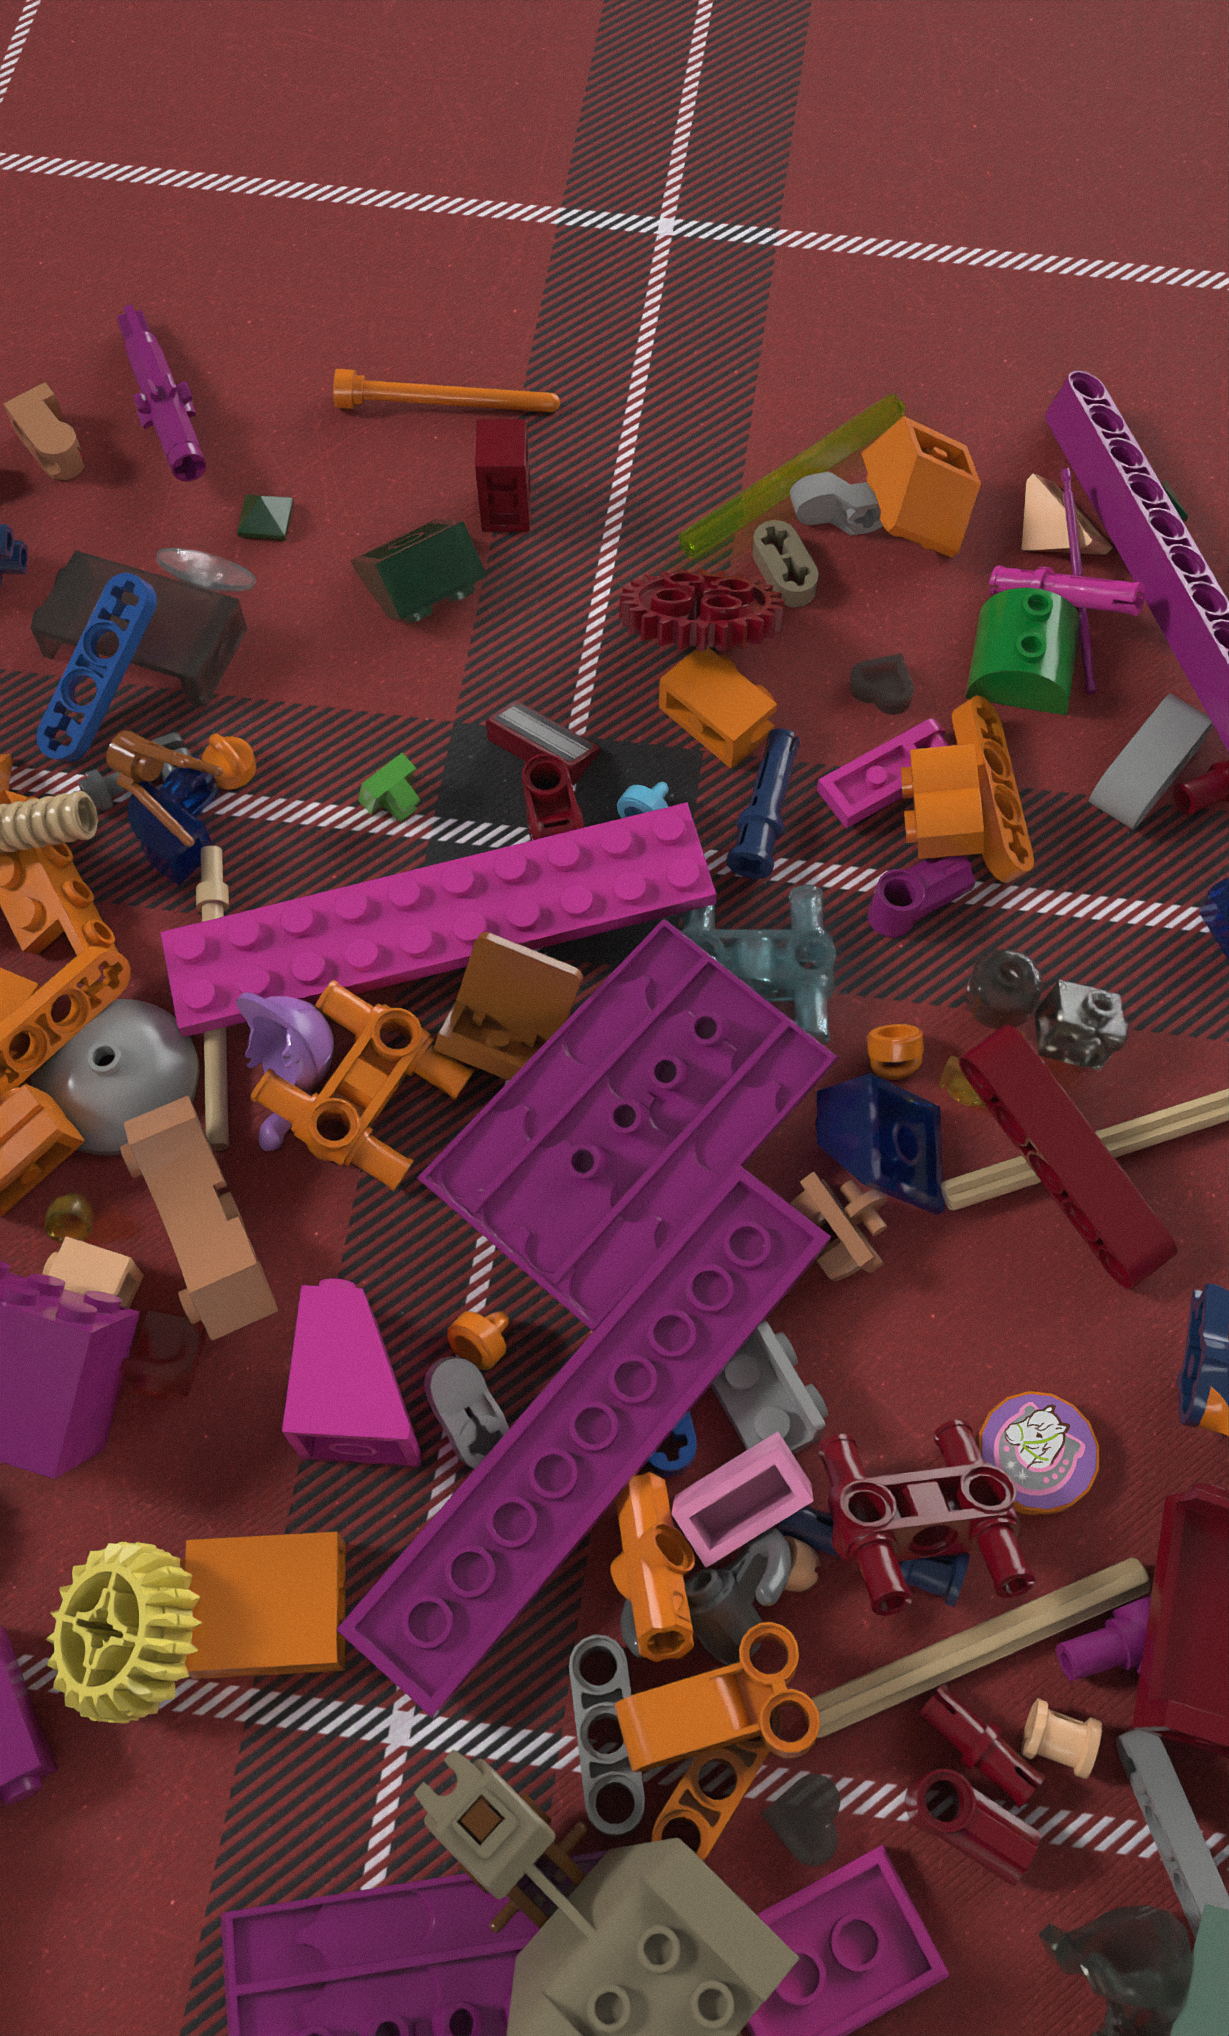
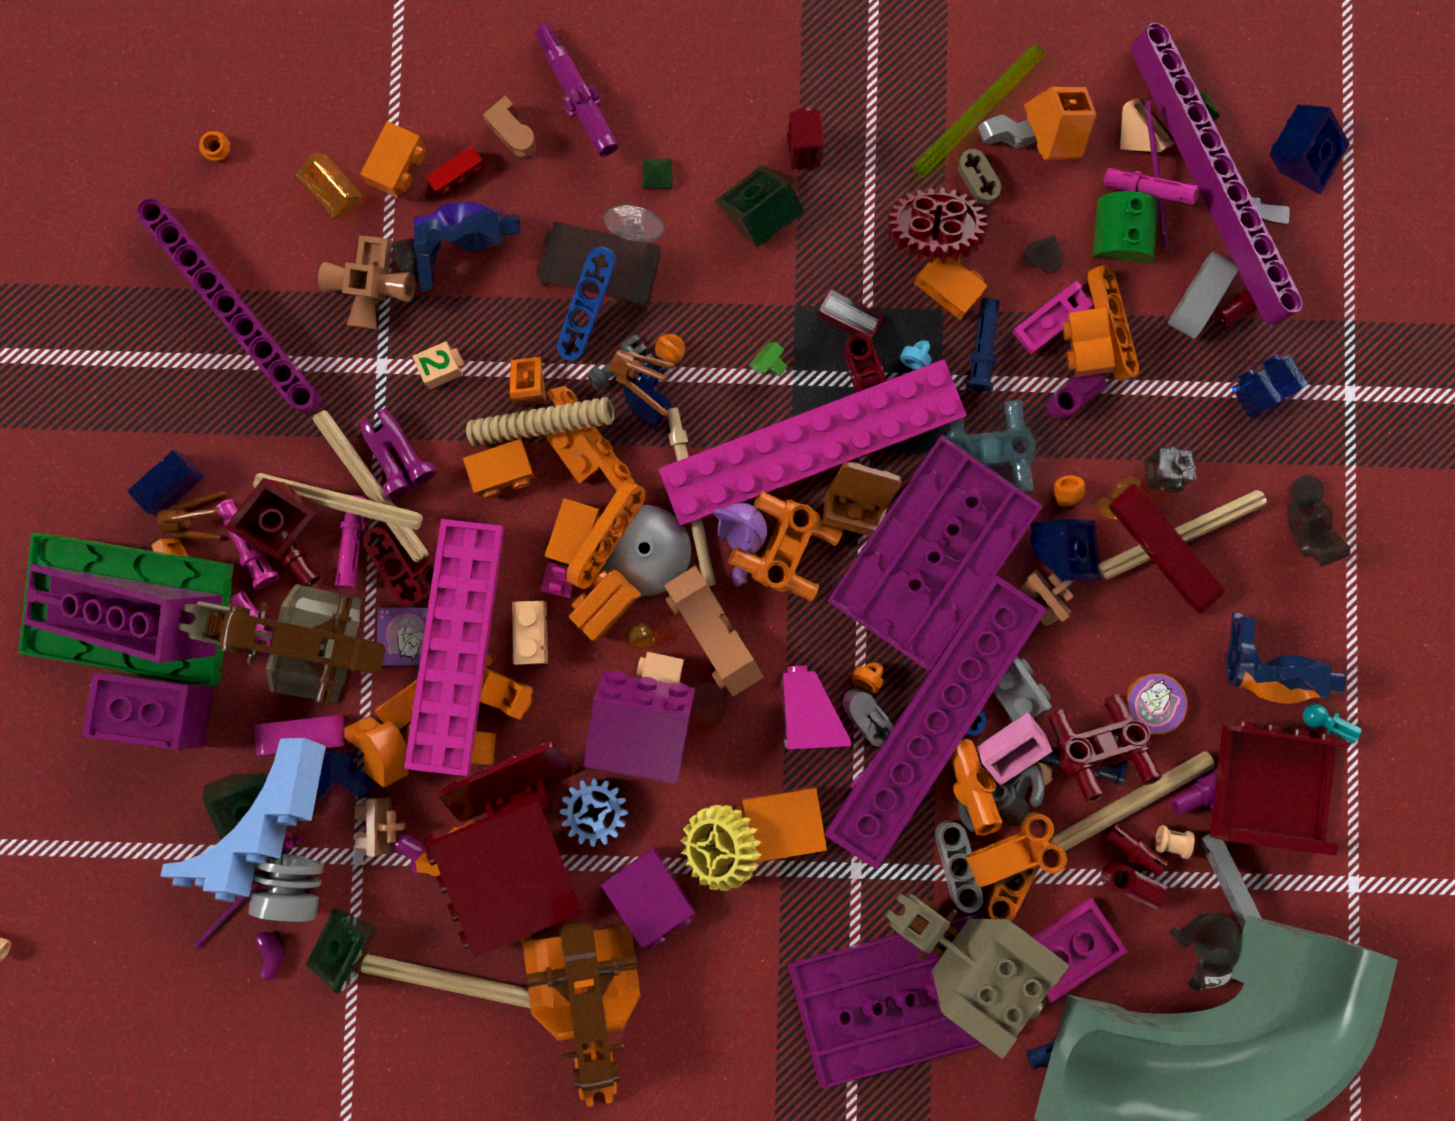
camera: 10 degrees left, 20 degrees up
(355, 389) = (696, 73): orange piece -> none
(804, 1819) = (1055, 891): clear smoke tile -> none
(1004, 988) = (1120, 458): clear smoke head -> none

